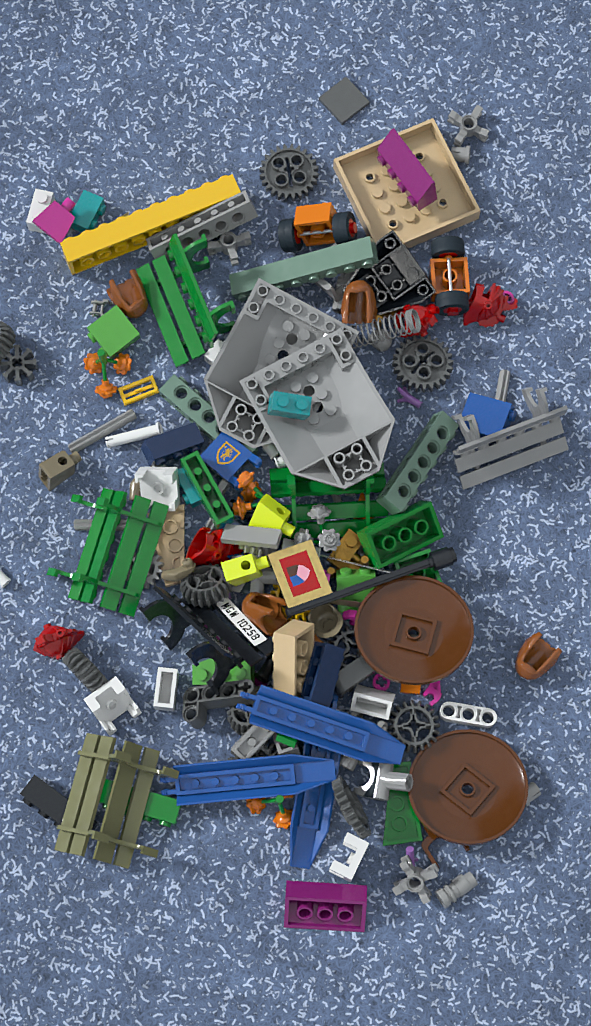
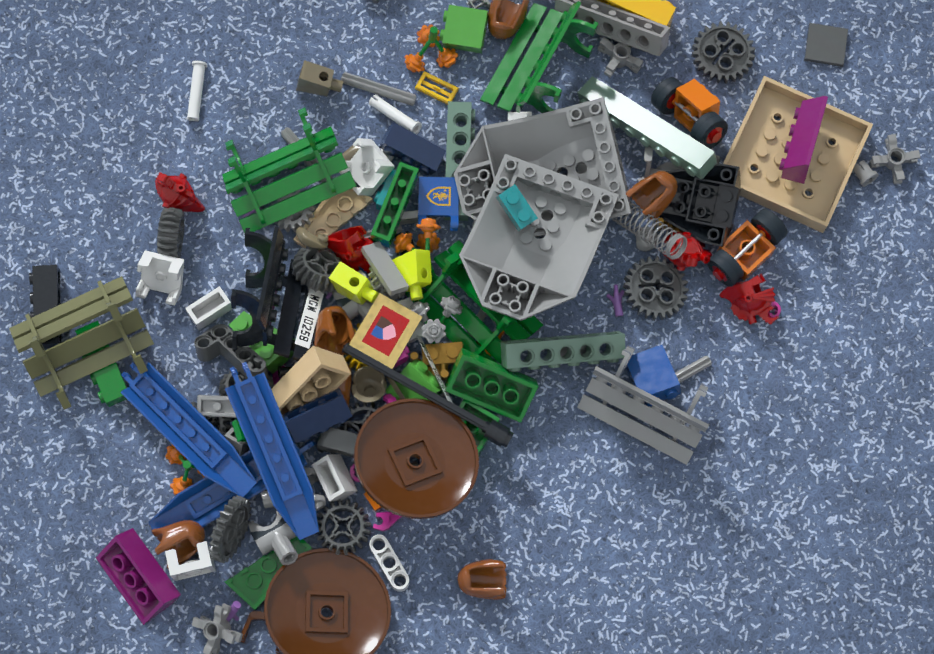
camera: 45 degrees right, 0 degrees up
(326, 848) = (180, 536): none -> dark orange hair

